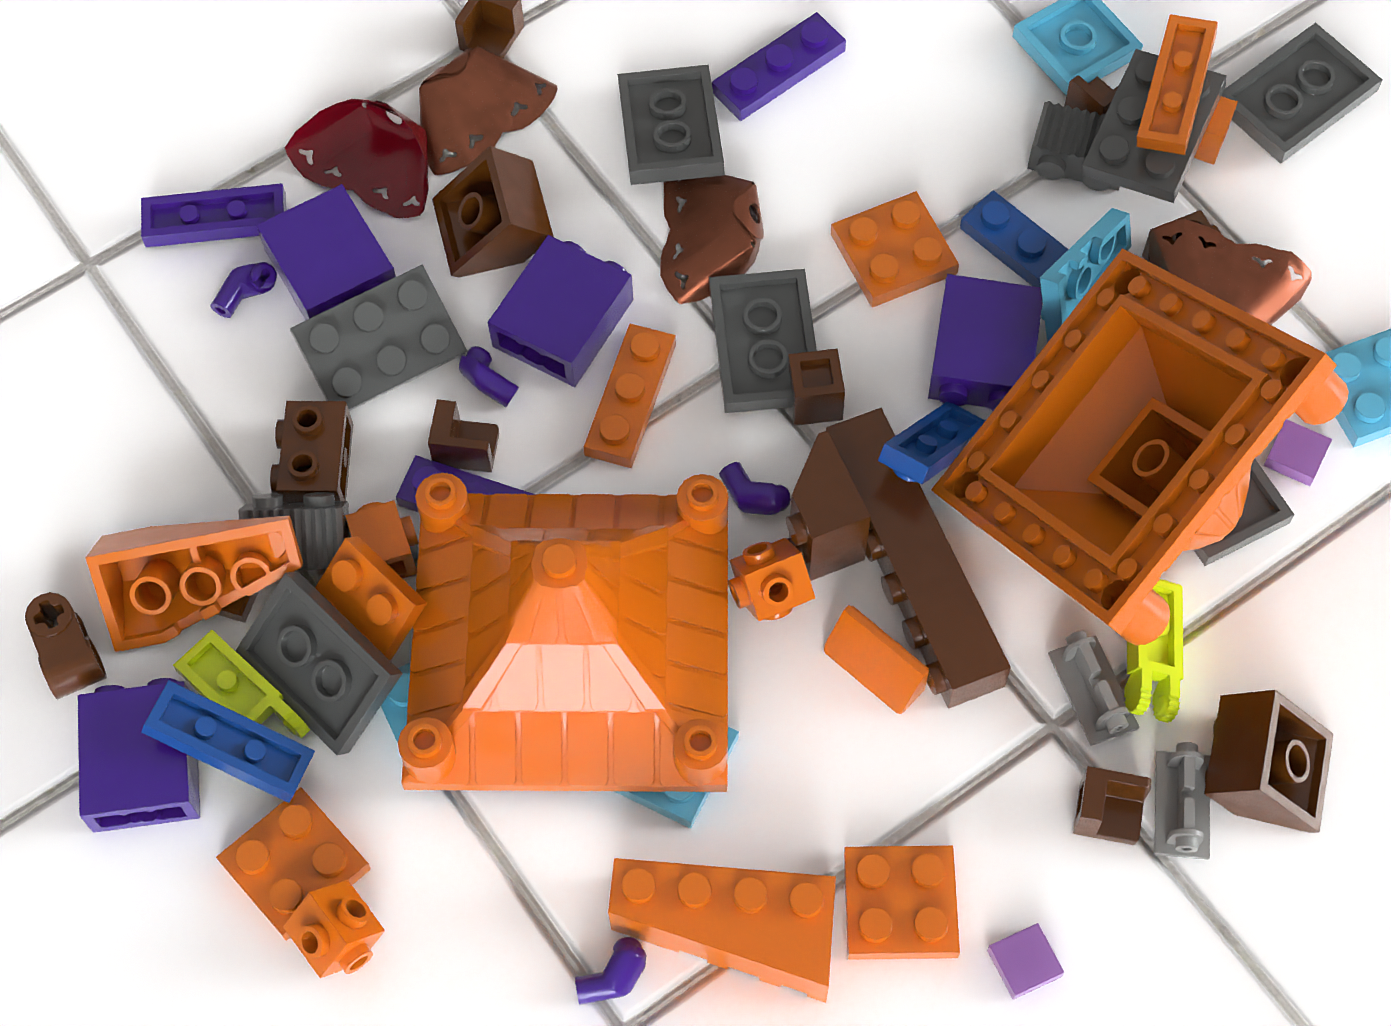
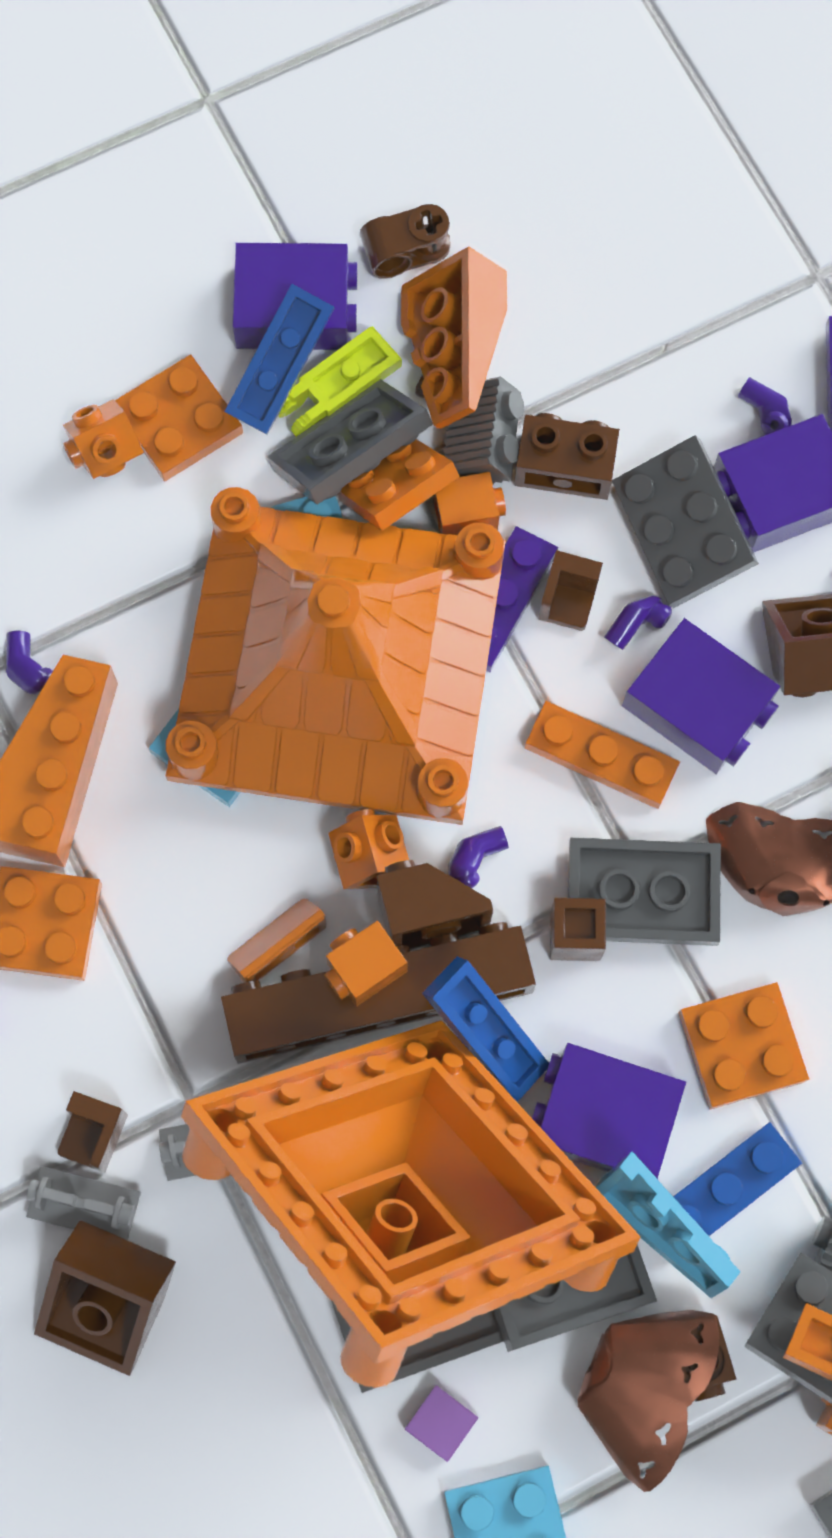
camera: 95 degrees right, 10 degrees up
(898, 548) = (363, 963): none -> orange brick
(1158, 662) = (229, 1215): neon yellow hinge -> none

